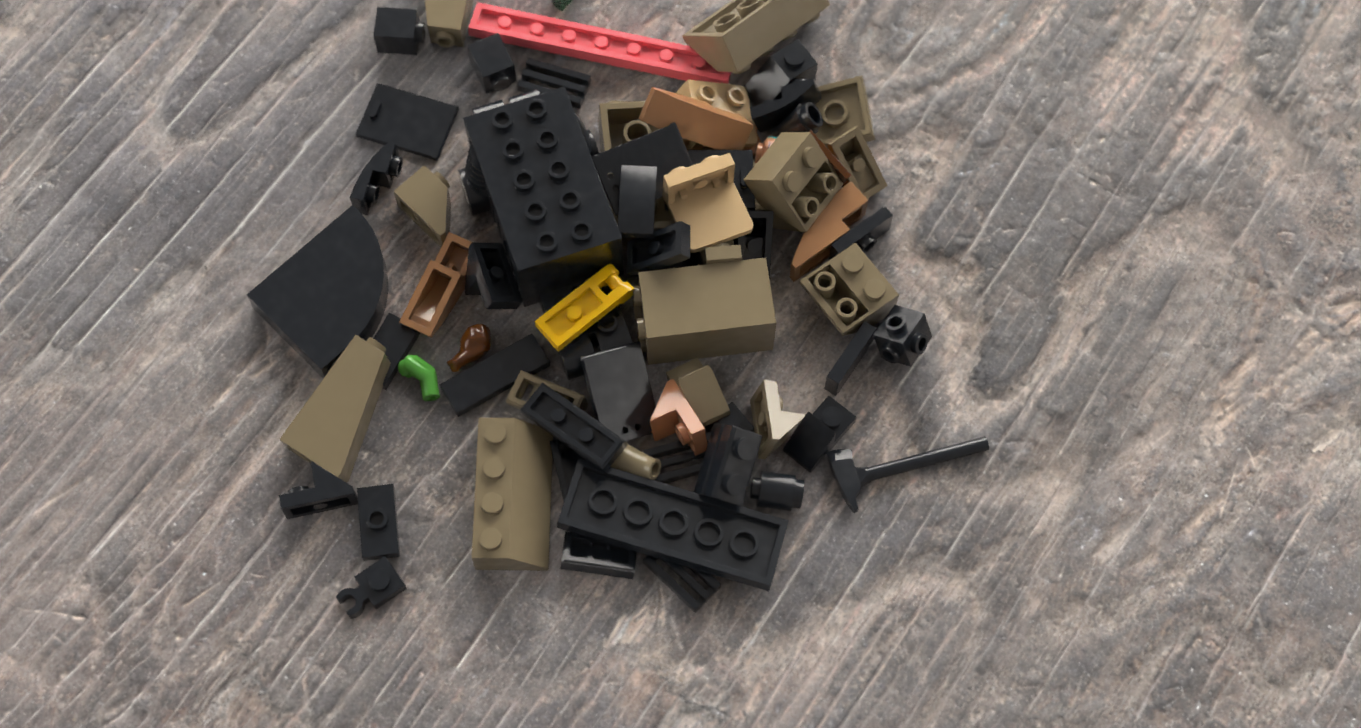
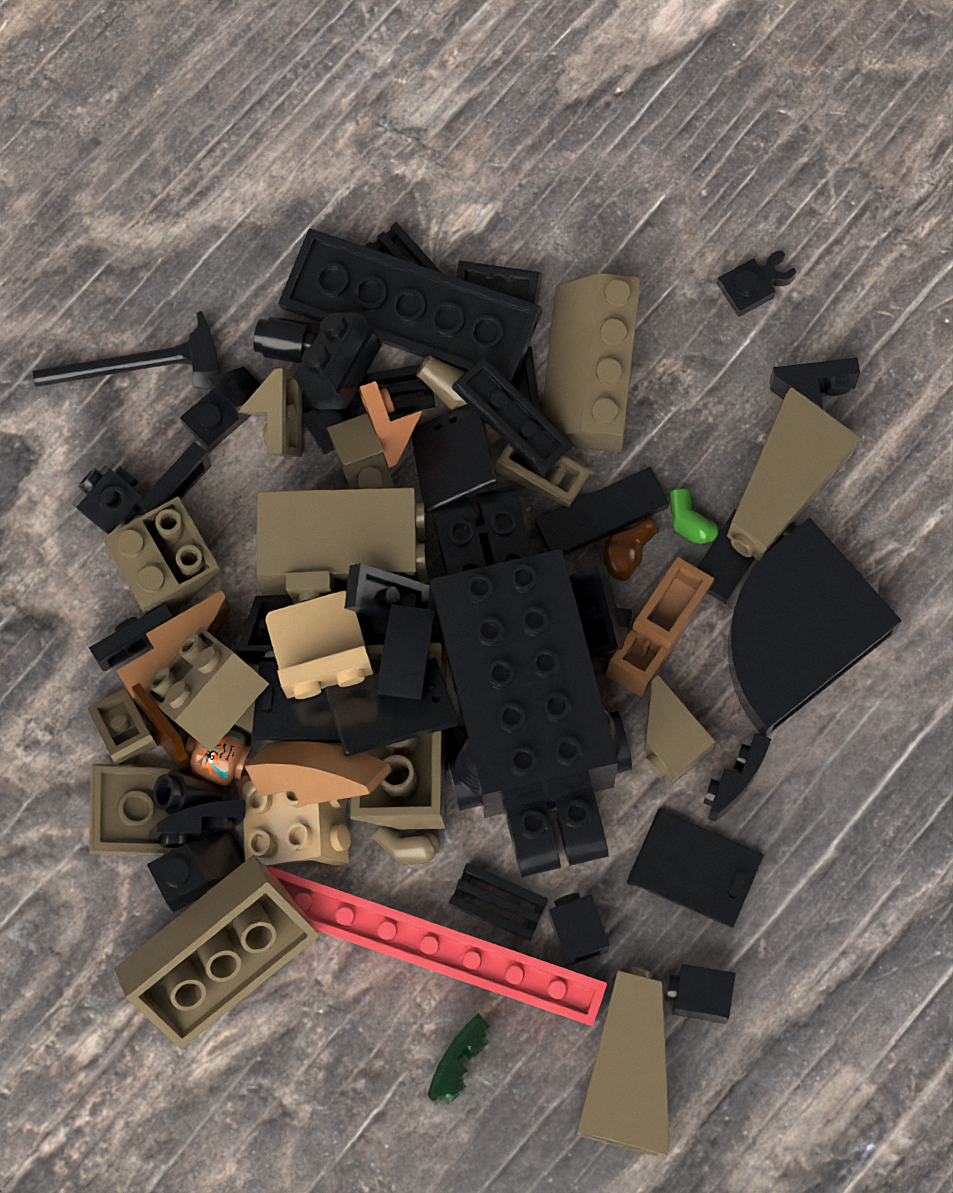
camera: 170 degrees left, 5 degrees up
(378, 522) = (746, 353): black plate -> none
(583, 307) = (488, 535): yellow plate -> none

